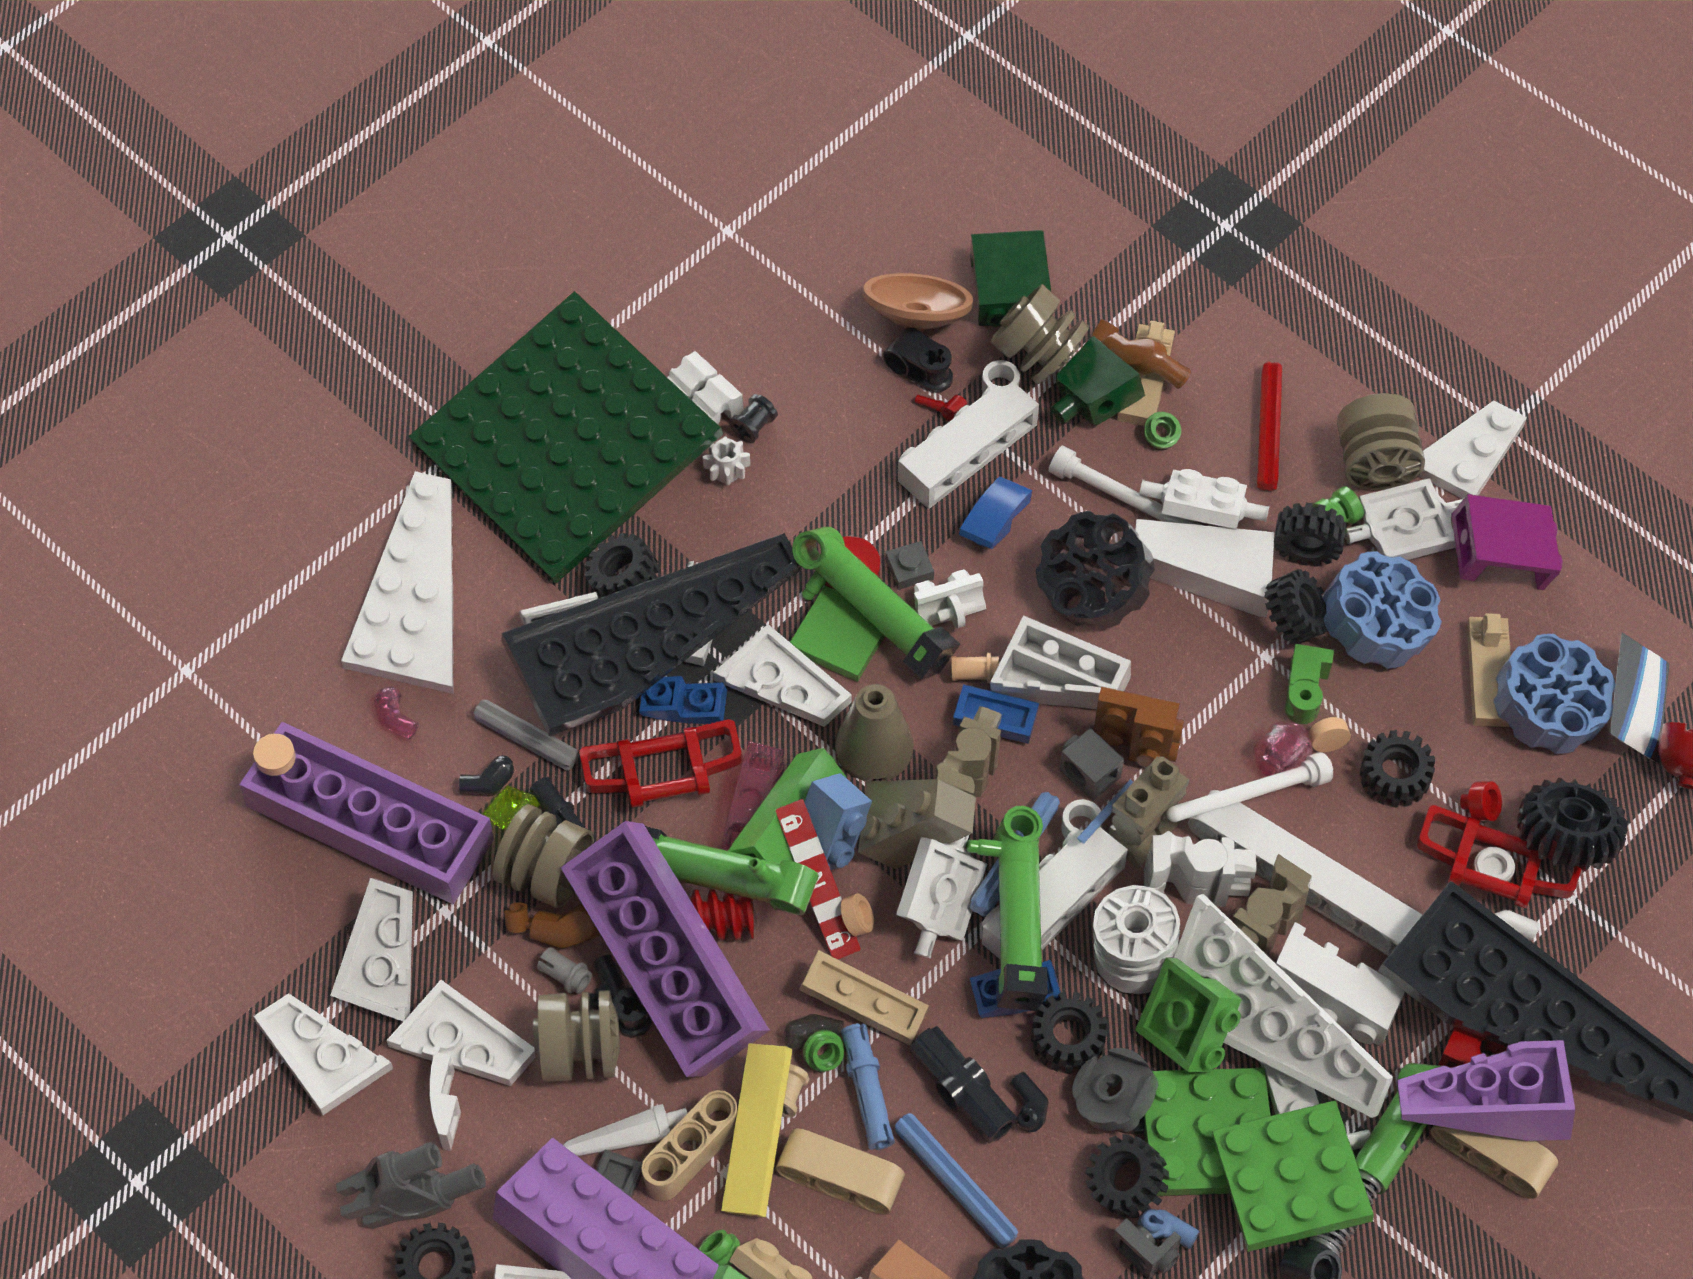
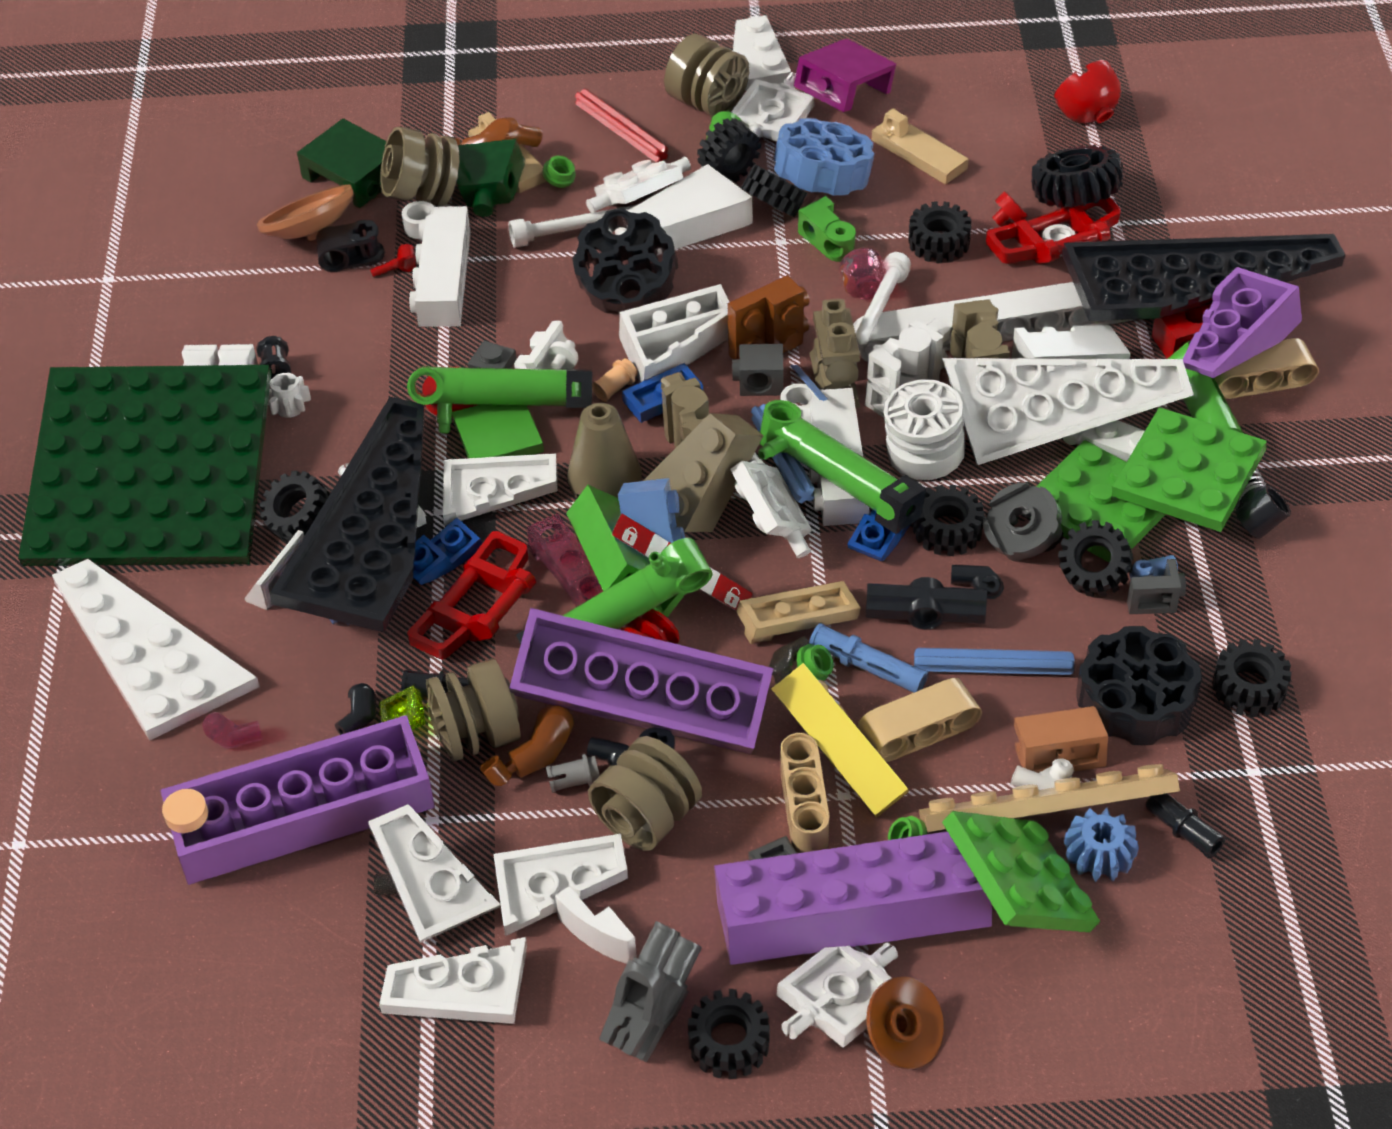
camera: 45 degrees left, 10 degrees down
(526, 734) = (351, 662): light grey axle -> none
(632, 1131) = (752, 822): white bar -> none
(857, 914) = (729, 568): light nougat tile -> none
(993, 513) = (513, 289): blue slope -> none
(1189, 1017) = (1014, 439): bright green plate -> none
(1329, 734) = (880, 240): light nougat tile -> none
(1558, 697) = (975, 125): medium blue connector -> none
(1639, 698) = (1021, 95): sticker -> none

